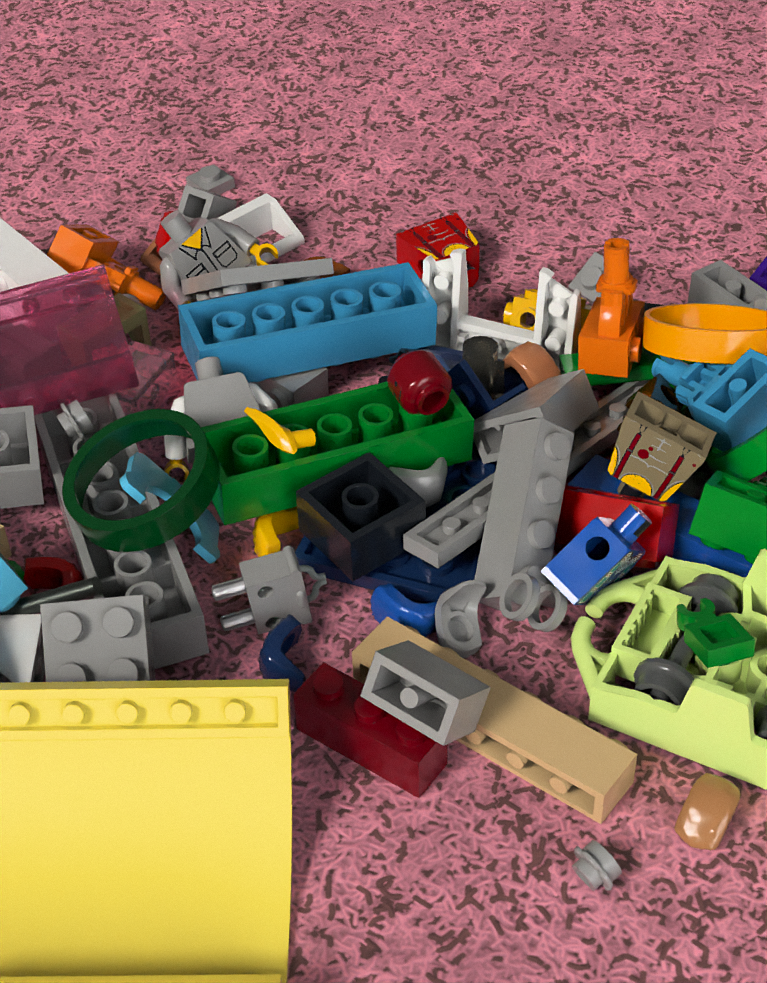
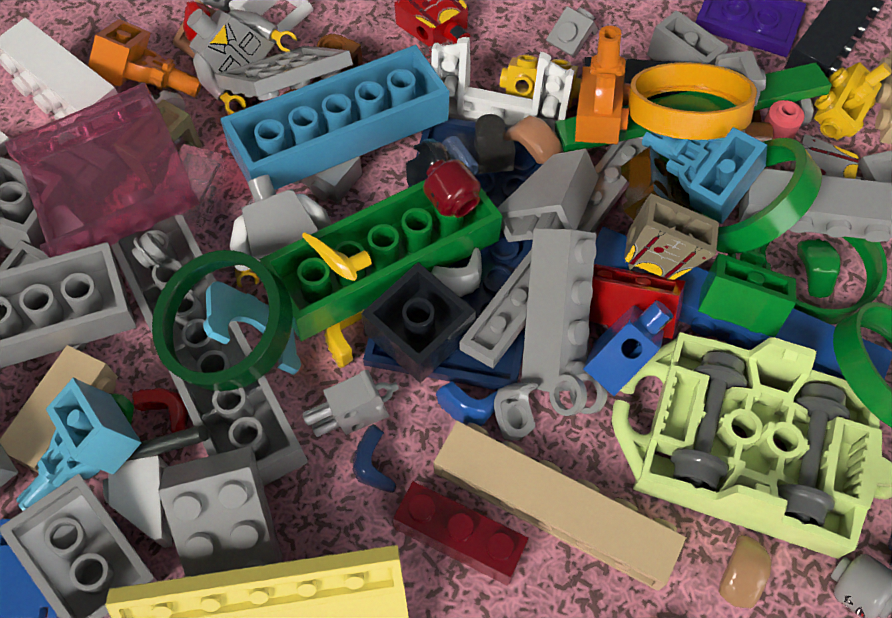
camera: 10 degrees left, 20 degrees up
(425, 692) = (507, 513): light grey brick -> none
(473, 393) = (492, 179): dark blue bracket -> none
(713, 637) = (739, 427): green plate -> none

